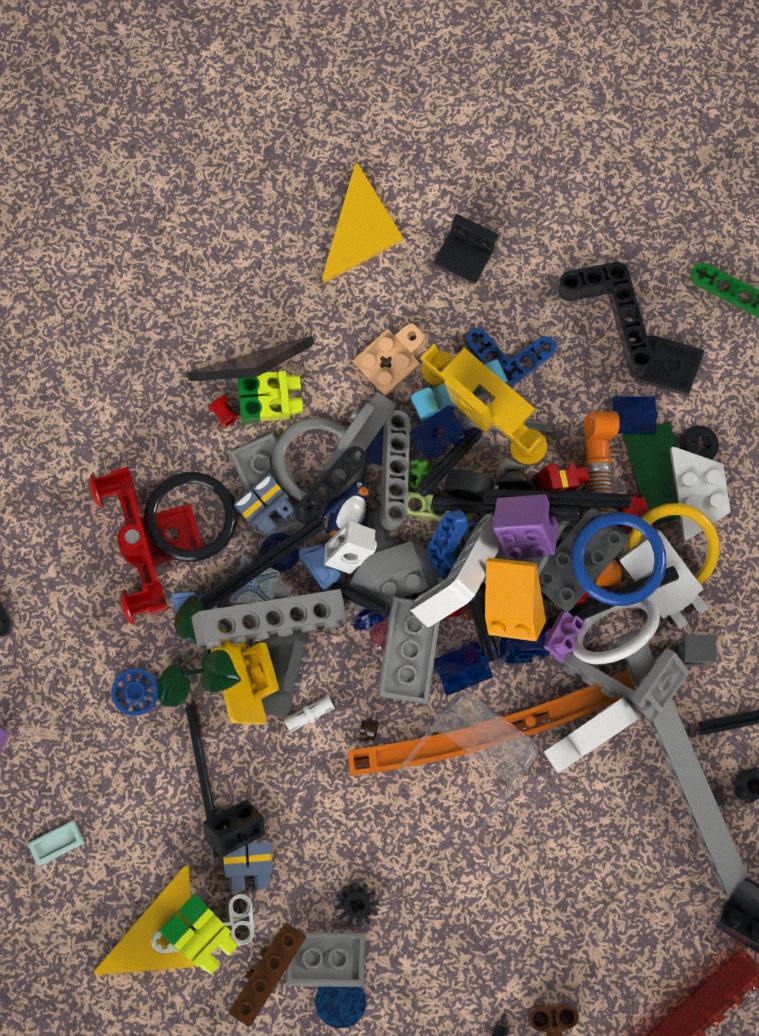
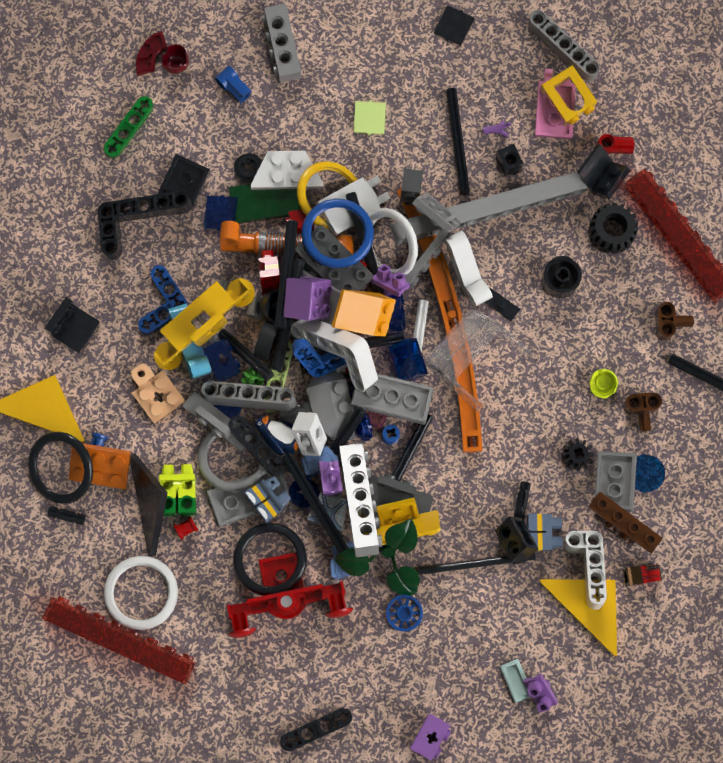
camera: 90 degrees left, 0 degrees up
(42, 873) = (540, 691): none -> medium lavender hips
(79, 348) = (119, 640): none -> clear red brick
(152, 403) = (161, 616): none -> white wedge
(202, 1004) = (642, 575): none -> leg
(206, 937) = (598, 563): neon yellow hips -> none
(230, 270) = (66, 515): none -> black axle
(291, 834) = (522, 499): none -> black axle
(292, 300) = (109, 466): none -> orange plate
(296, 579) = (330, 478): none -> medium lavender hips
(297, 276) = (87, 464): none -> black wedge
(309, 713) = (432, 479): white pin -> none
(320, 295) = (98, 439): none -> blue bush
(346, 683) = (411, 449): none -> black axle
(360, 648) = (389, 429): none -> blue bush
(369, 729) = (447, 435): dark brown plate -> none
(426, 992) = (643, 408): none -> reddish brown beam
(456, 934) = (603, 383): none -> neon yellow hair
(515, 683) = (421, 322): none -> white axle
(552, 790) = (502, 305): none -> black piece
(608, 877) = (568, 269): none -> black brick
(697, 935) = (617, 214): none -> black tyre

